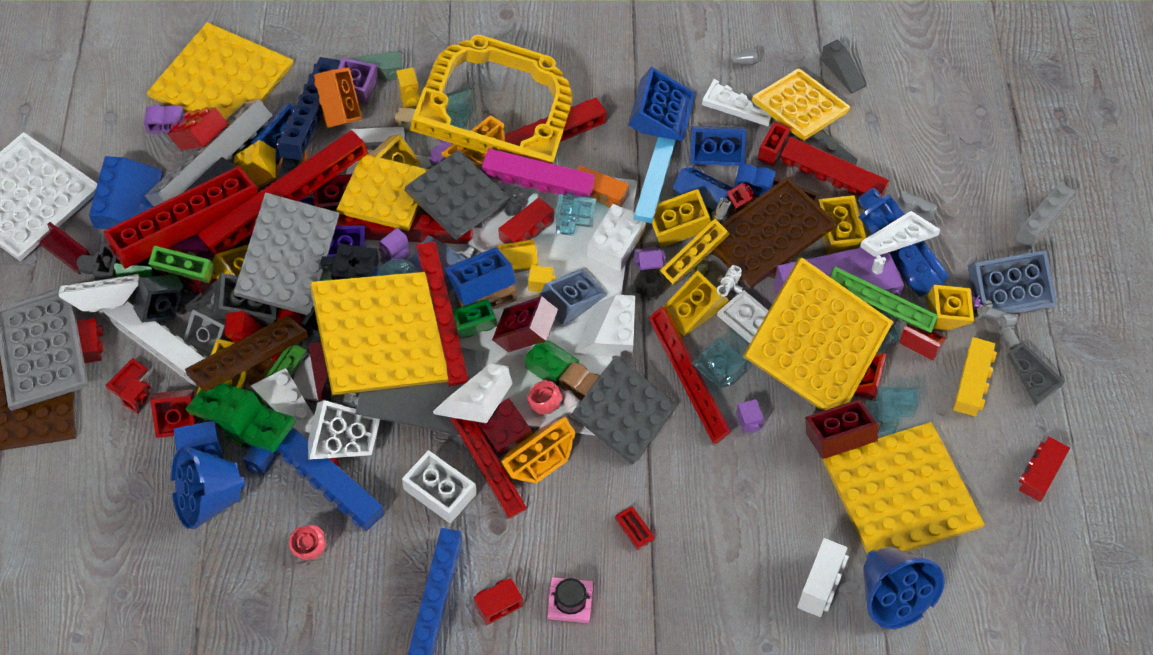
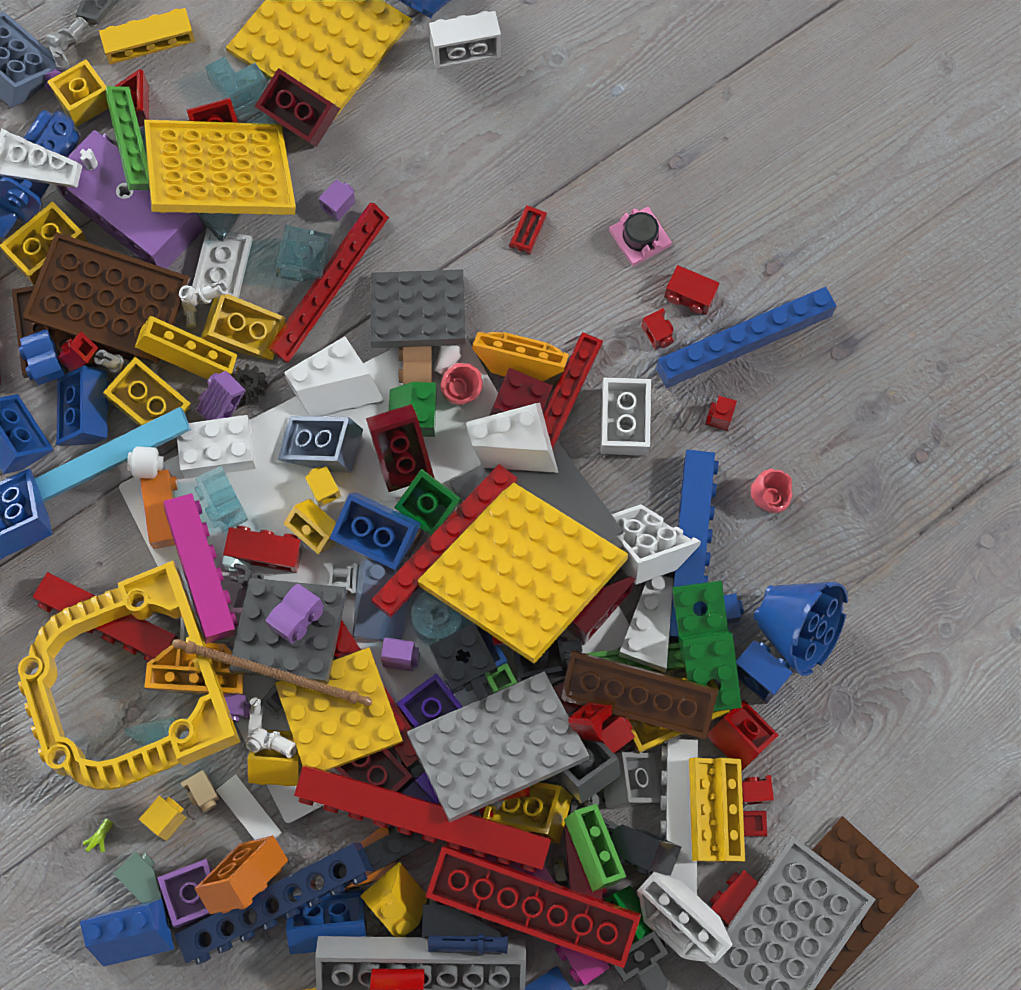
camera: 125 degrees left, 15 degrees up
(144, 358) = (716, 810): none -> yellow brick
(179, 185) = (475, 944): none -> dark blue pin
(256, 309) = (589, 720): none -> red slope
(363, 40) = (128, 933): none -> blue slope
(390, 553) = (721, 413): none -> red brick
(408, 148) = (260, 739): none -> white pin
(428, 60) = (99, 836): none -> lime bar
(442, 158) = (192, 648): none -> medium nougat hose
(459, 192) = (295, 613): none -> medium lavender brick
(486, 556) = (658, 329): none -> red brick
(632, 185) = (144, 462): none -> white head

